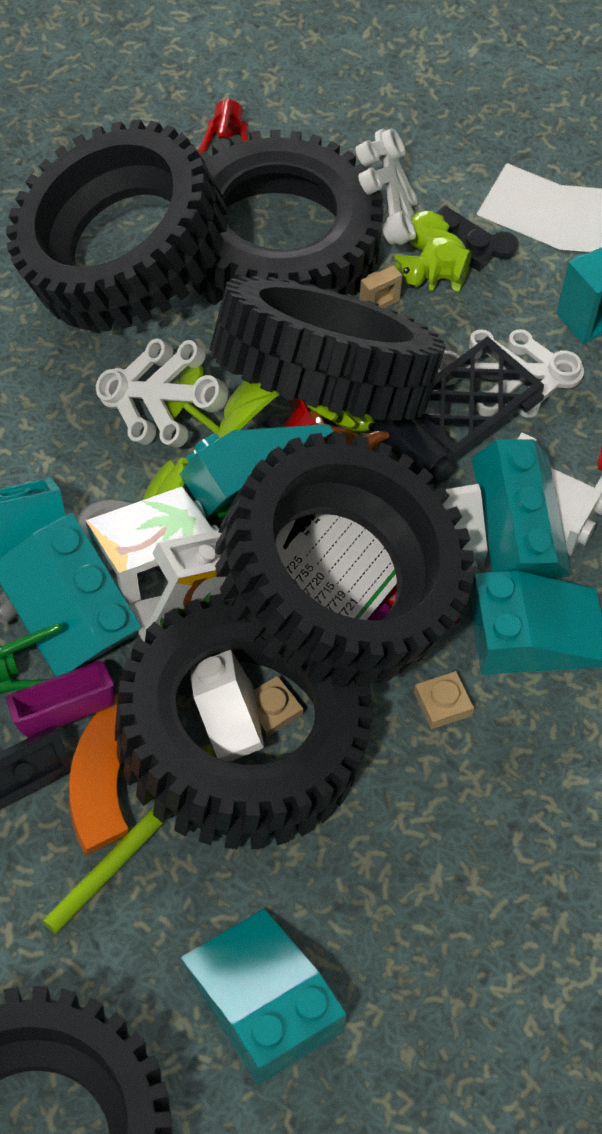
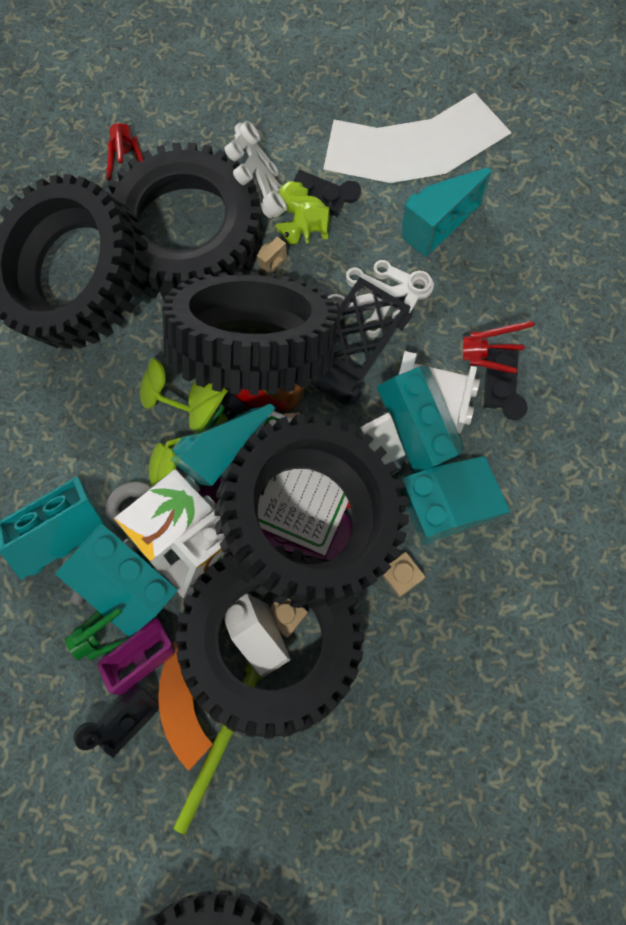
camera: 10 degrees left, 15 degrees up
(119, 386) = (106, 392): white plant -> none
(265, 995) = (339, 840): teal slope -> none

